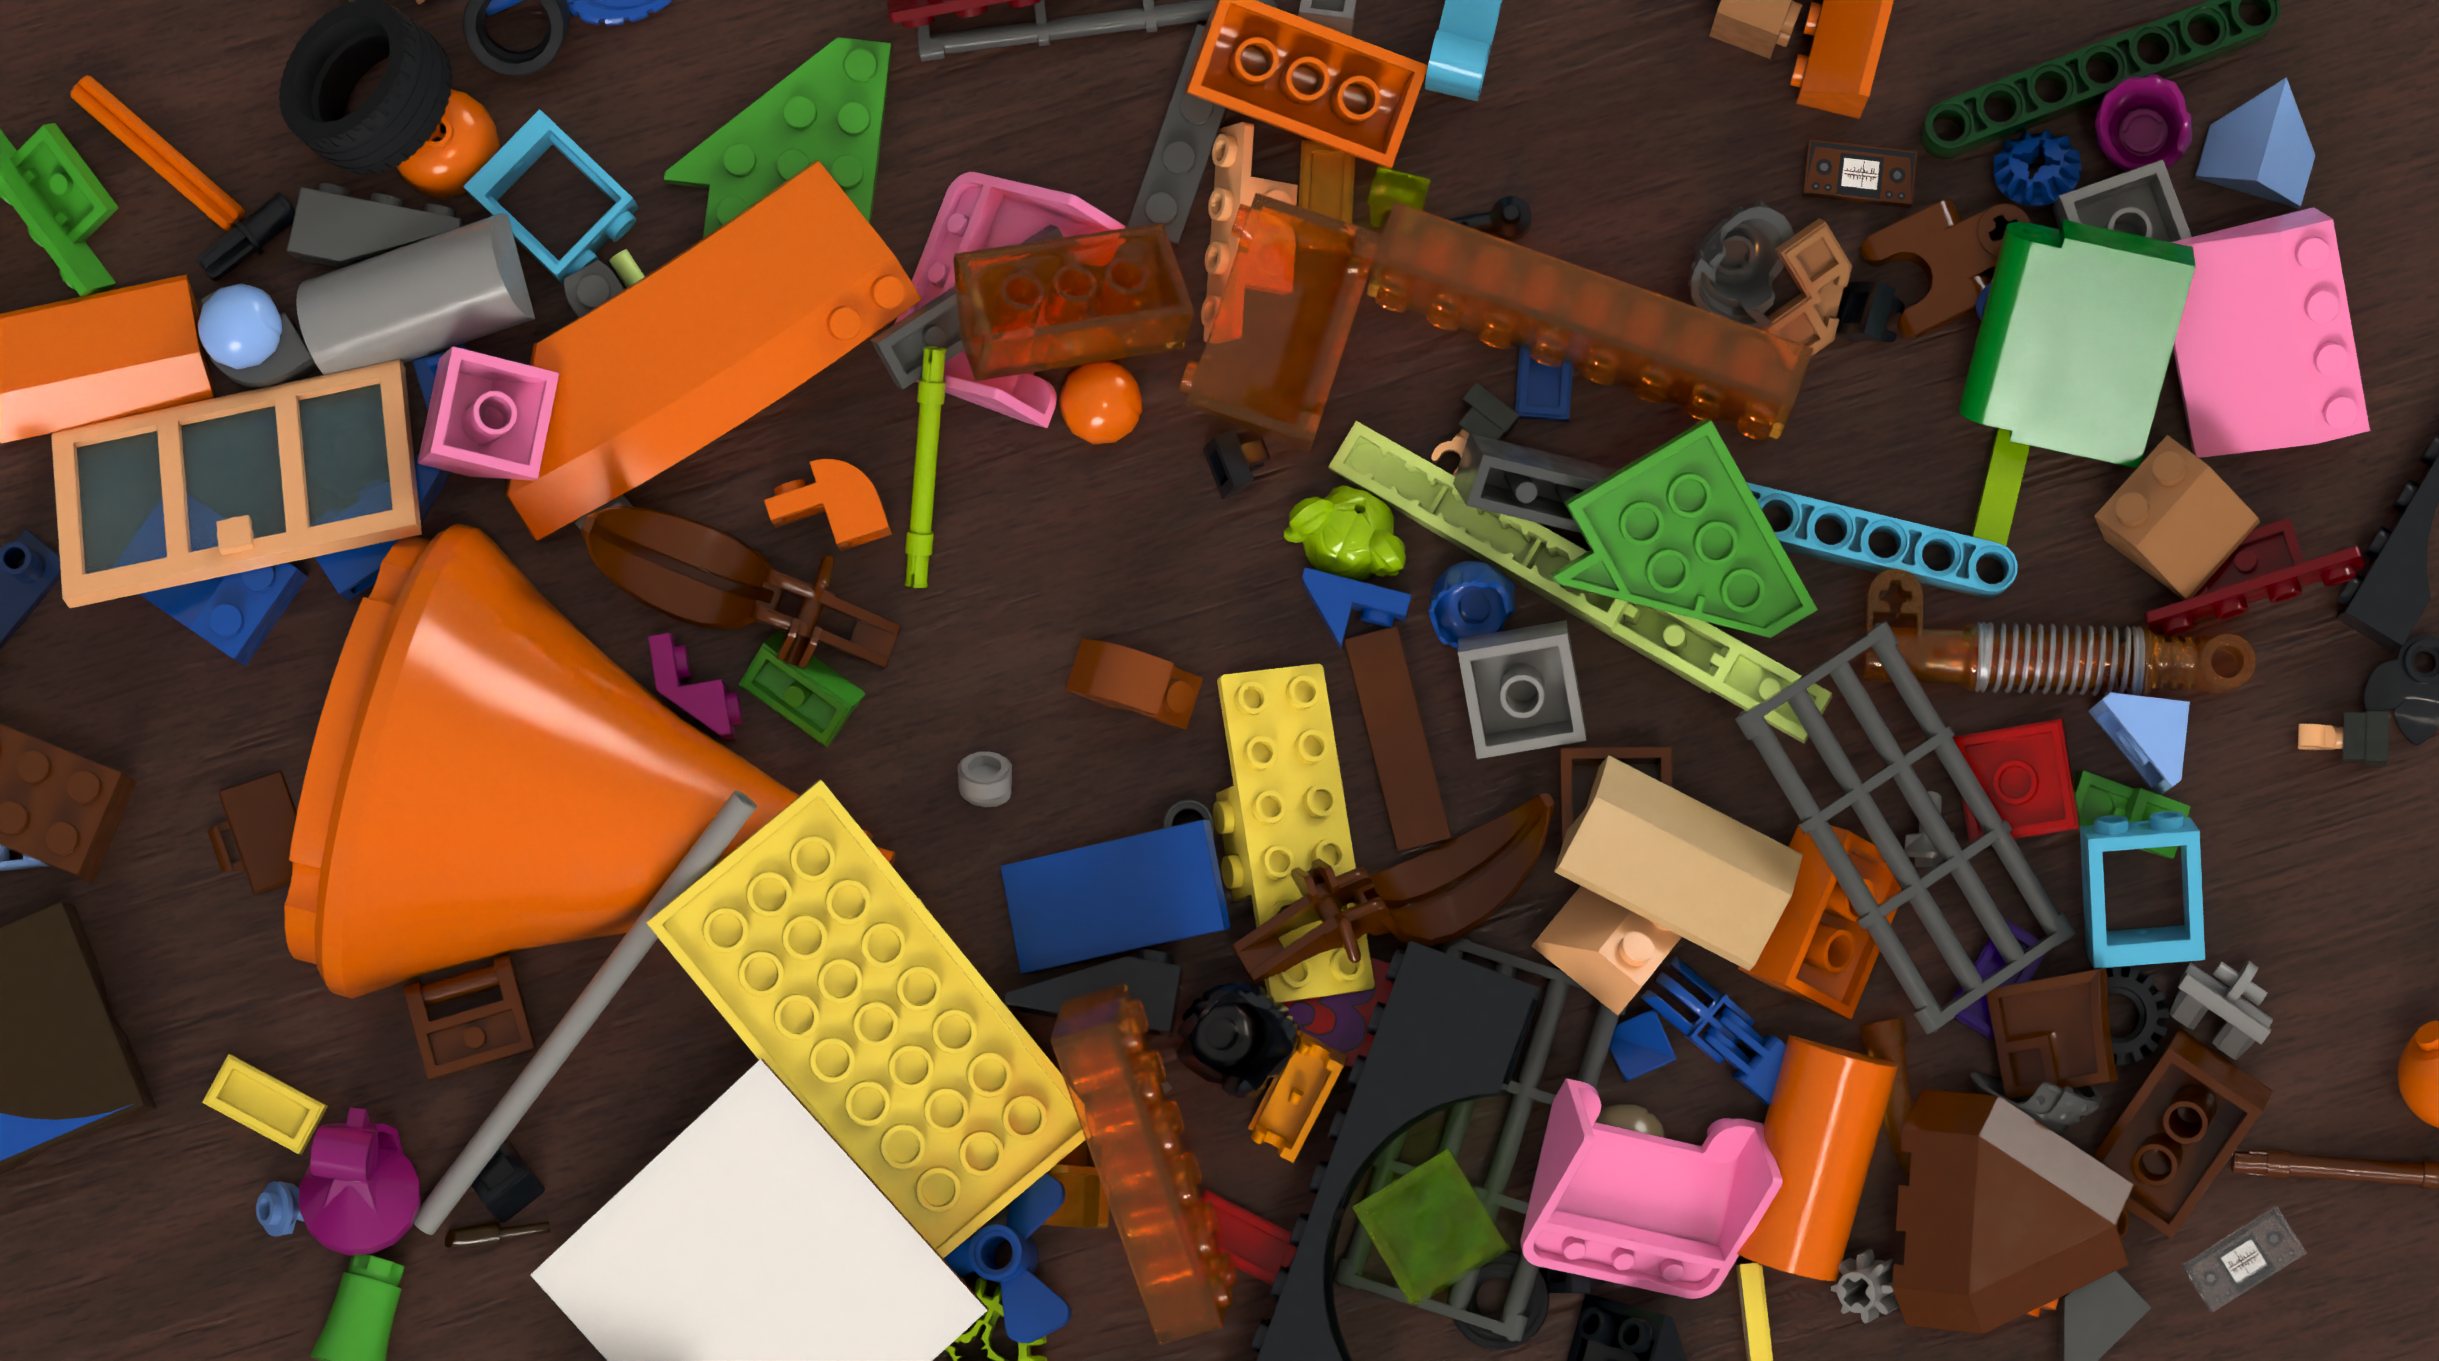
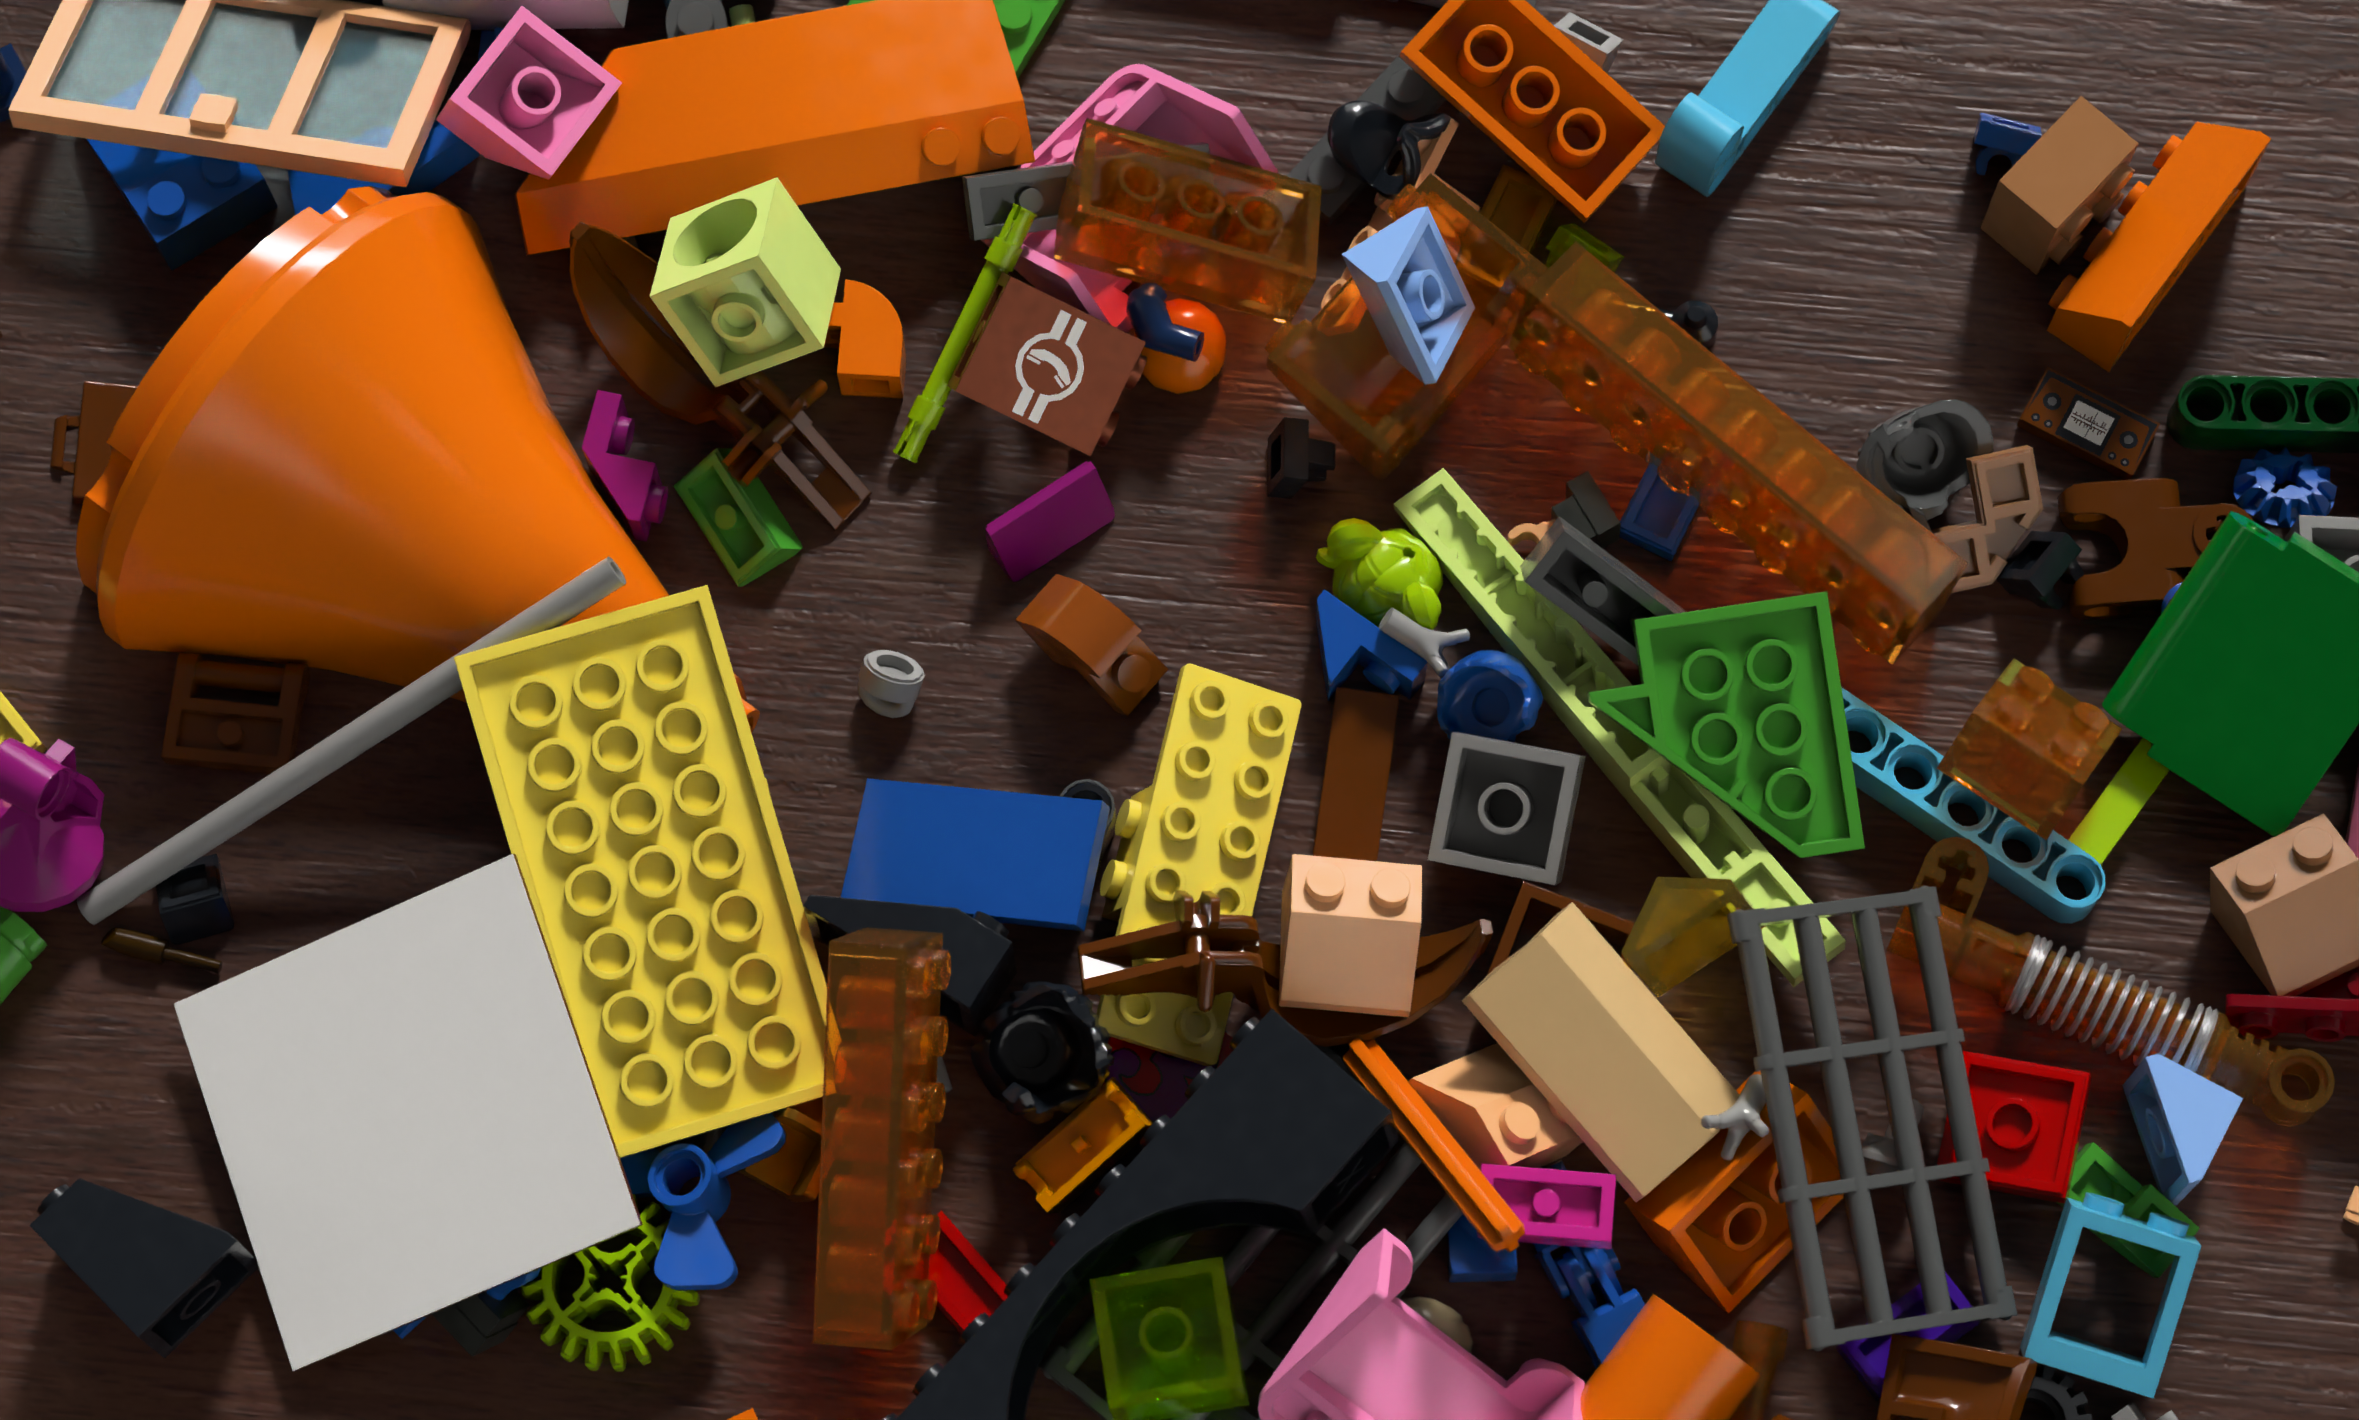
camera: 15 degrees right, 10 degrees down
(735, 504) = (746, 282): none -> yellowish green brick
(1005, 472) = (1048, 365): none -> copper panel
(1058, 595) = (1049, 522): none -> magenta slope
(1078, 403) = (1154, 326): none -> dark blue arm
(1184, 166) = (1368, 136): none -> black piece
(1280, 295) = (1412, 292): none -> light blue slope
(1400, 579) = (1420, 640): none -> light grey bar
(1440, 846) = (1349, 935): none -> light nougat slope
(1576, 993) = (1435, 1146): none -> orange axle
(1683, 1006) = (1558, 1204): none -> dark pink panel
(1700, 738) = (1682, 929): none -> clear yellow slope
(1805, 872) = (1740, 1117): none -> light grey bar
(1917, 474) = (2029, 748): none -> clear orange brick

